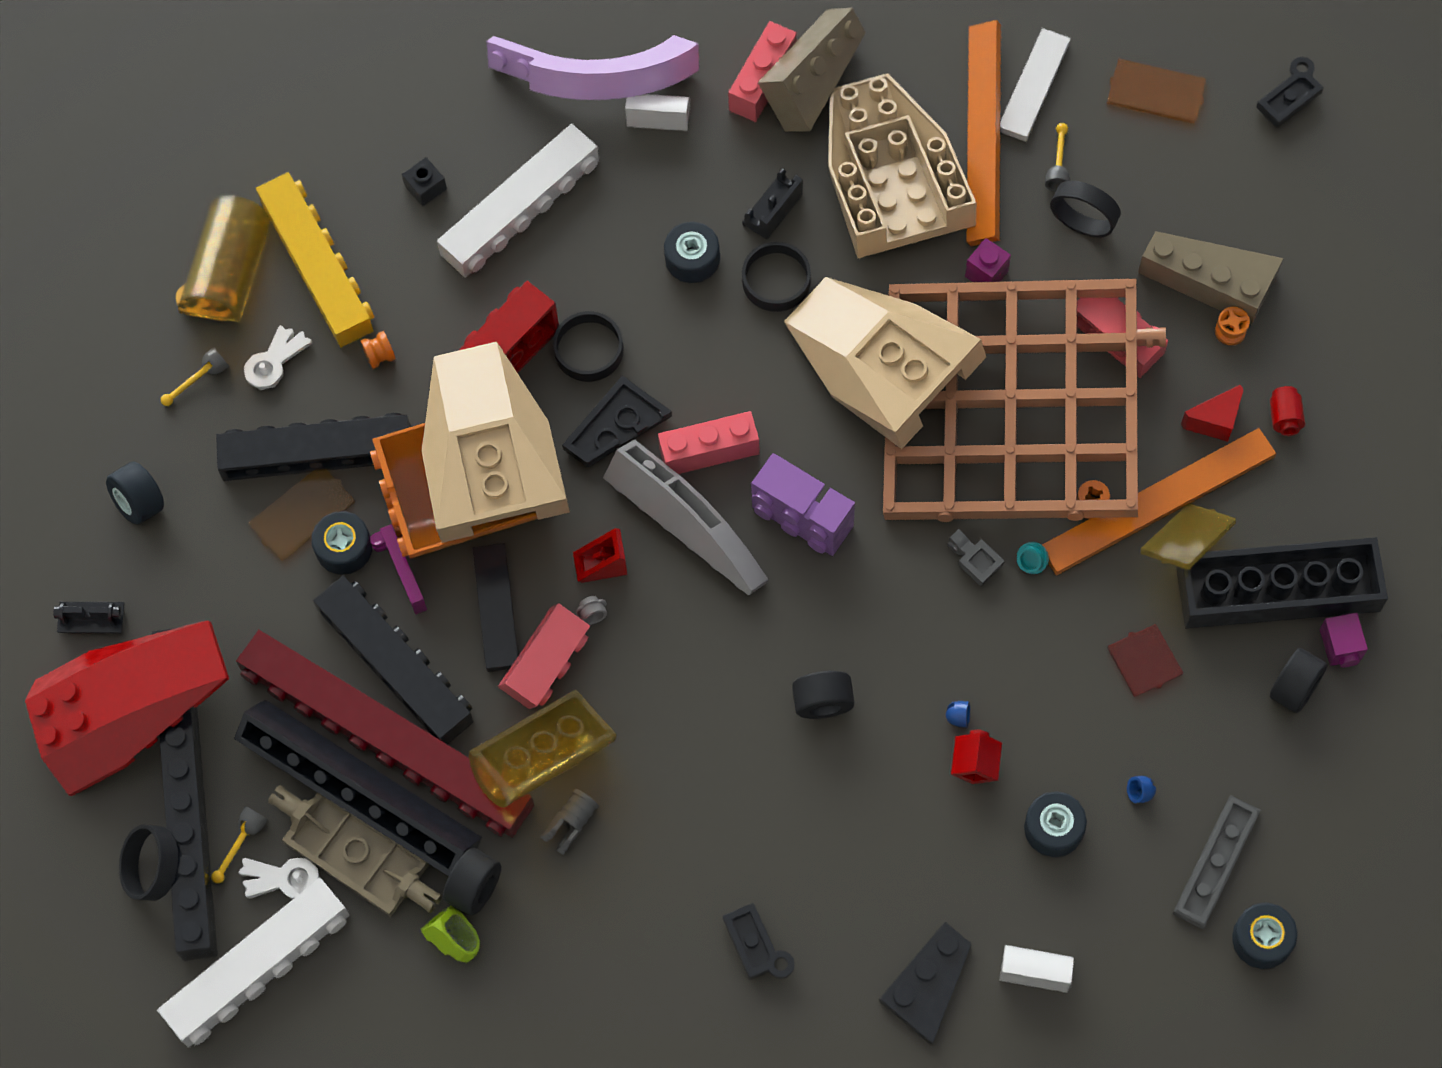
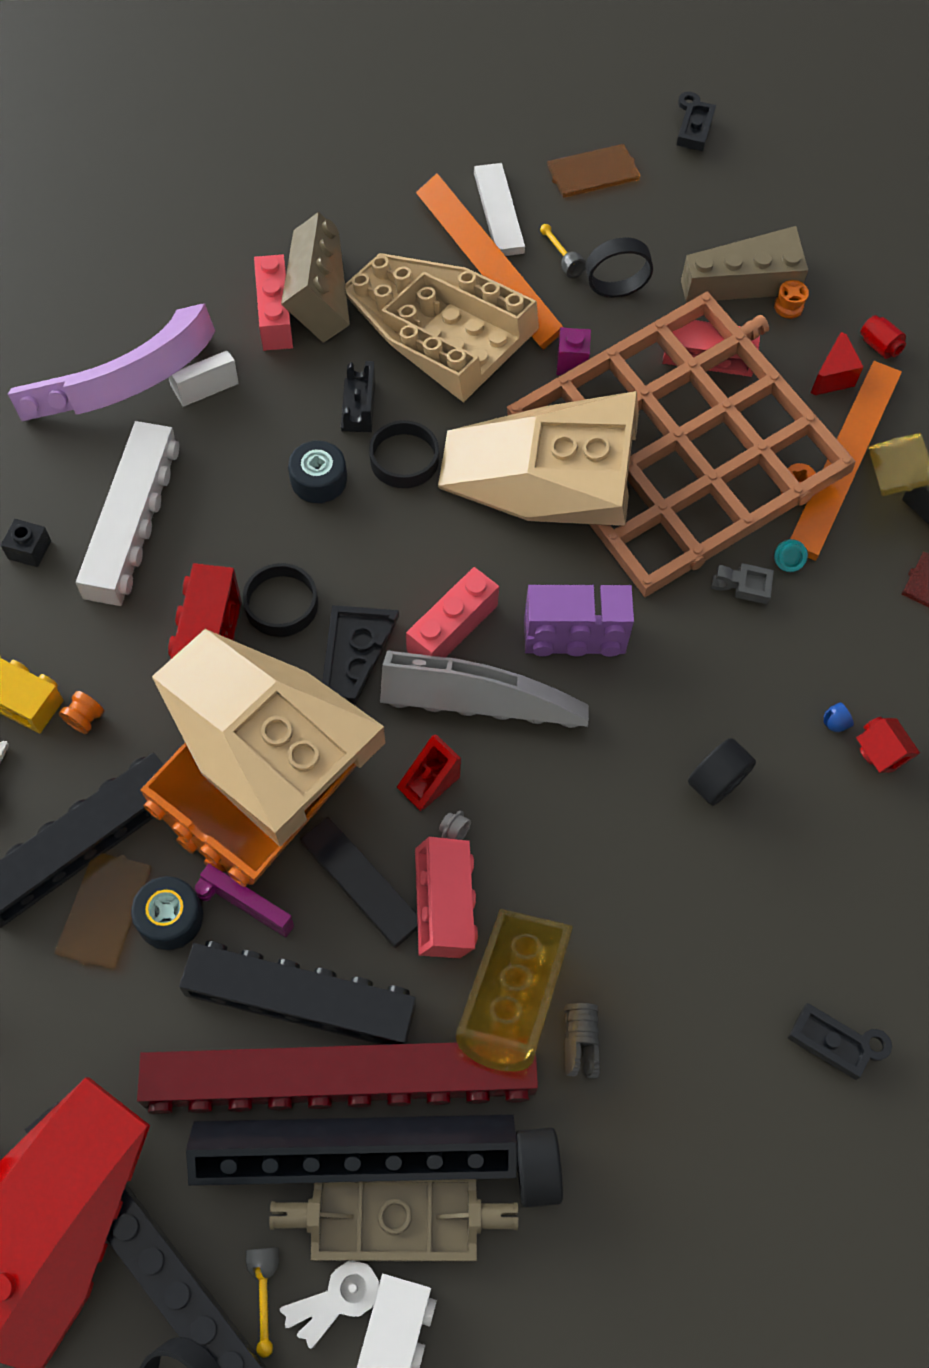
camera: 40 degrees left, 5 degrees down
(452, 935) = (553, 1236): lime rock -> none

